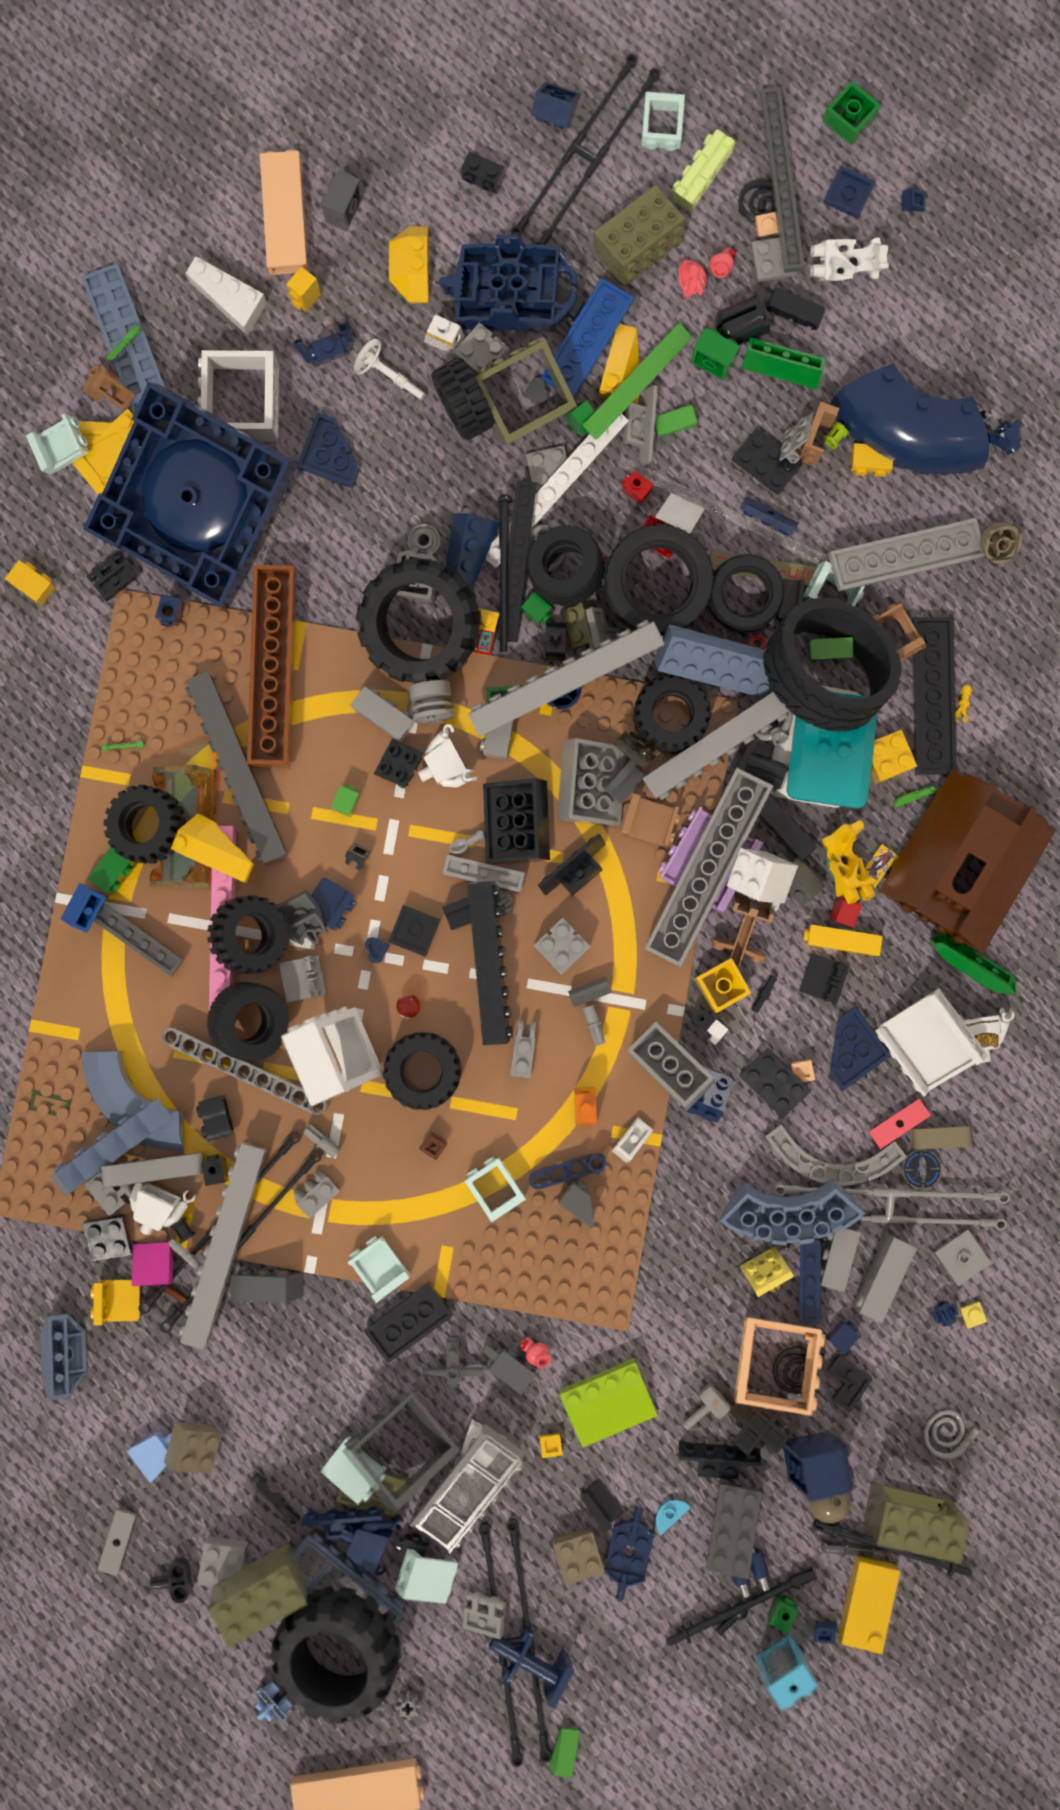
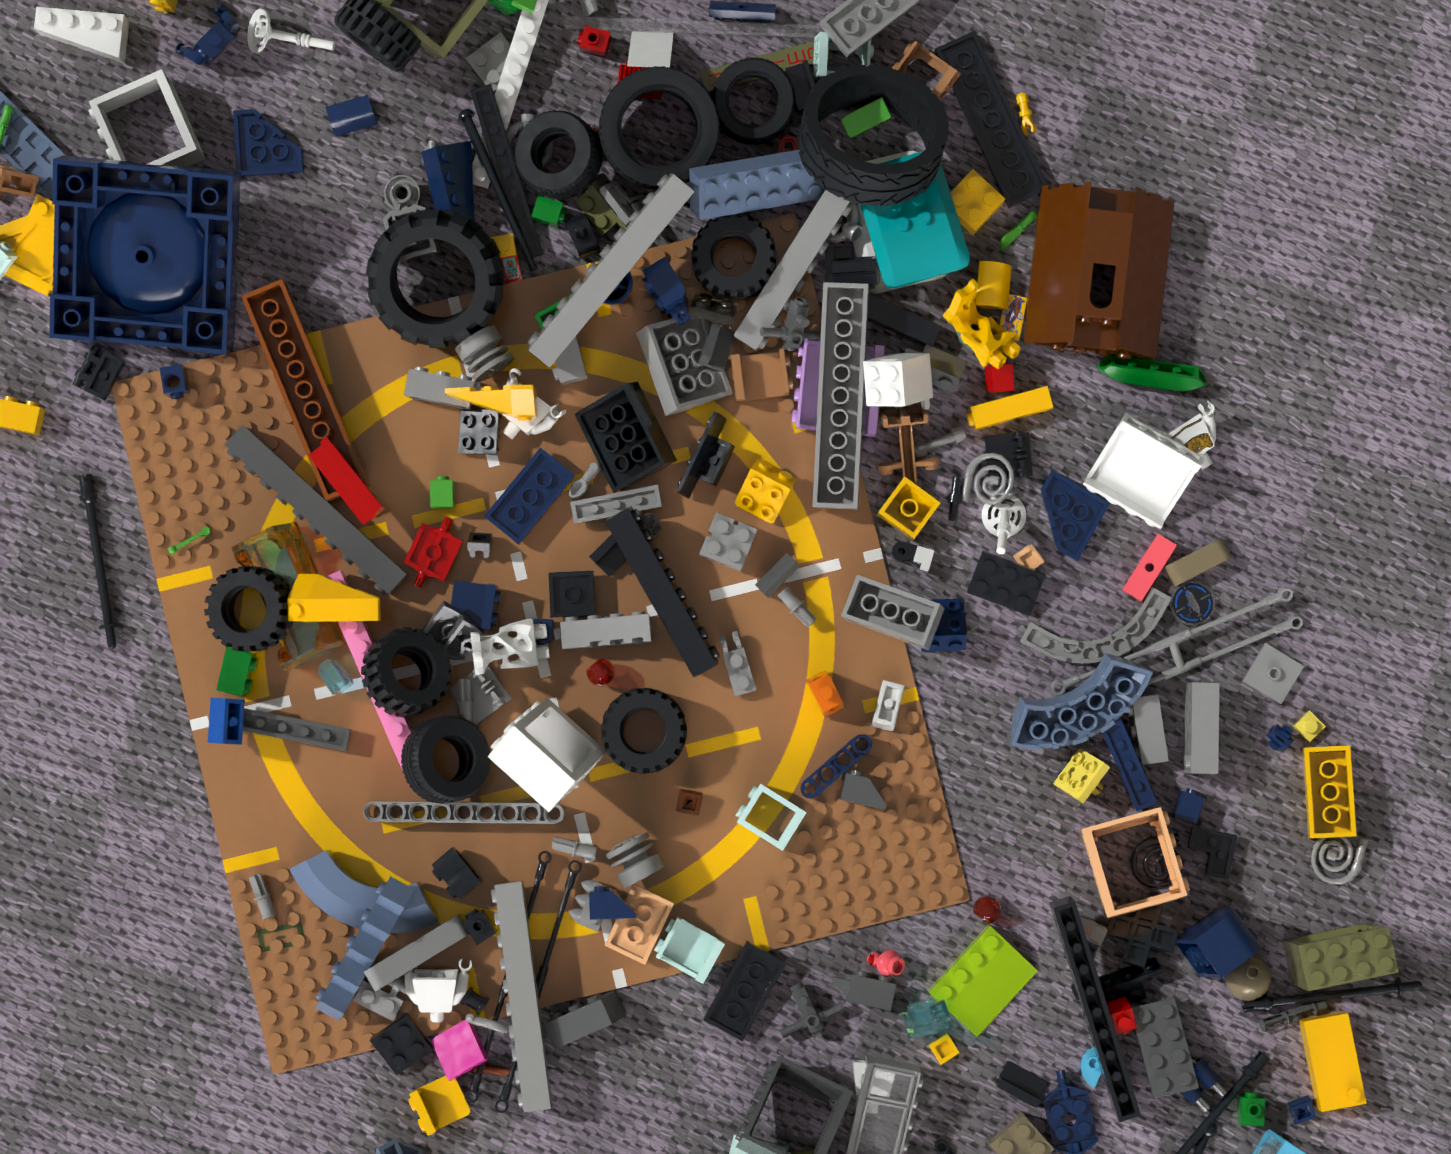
camera: 15 degrees left, 0 degrees up
(48, 1064) = (262, 896): none -> light grey axle
(57, 674) = (88, 497): none -> black bar
(189, 911) = (335, 676): none -> clear light blue brick
(270, 755) = (346, 481): none -> red panel
(286, 978) = (464, 699): none -> light grey axle
(316, 845) = (433, 552): none -> red plate
(328, 1203) = (609, 904): none -> dark blue slope
(346, 1228) = (638, 935): none -> light nougat plate
(354, 954) = (522, 645): none -> white hips
(366, 1174) = (635, 860): none -> light grey wheel
(411, 459) = (351, 115): none -> dark blue brick
(416, 835) = (529, 496): none -> dark blue plate
(428, 975) = (606, 631): none -> light grey wedge
(435, 750) = (513, 400): none -> yellow wedge
(548, 1415) = (926, 1018): none -> clear light blue hinge
(606, 717) = (668, 290): none -> dark blue hinge
(611, 917) = (765, 490): none -> yellow bracket
(639, 1345) = (987, 908): none -> clear red piece
(691, 1472) = (1095, 1008): none -> black brick
(693, 796) = (793, 331): none -> dark grey piece
(709, 1487) = (1122, 1016): none -> red brick
(789, 942) = (956, 435): none -> light grey bar
(796, 1036) = (1005, 526): none -> white dish
(802, 993) = (994, 480): none -> light grey piece
(875, 833) = (993, 285): none -> yellow brick
(966, 1379) = (1329, 792): none -> yellow brick

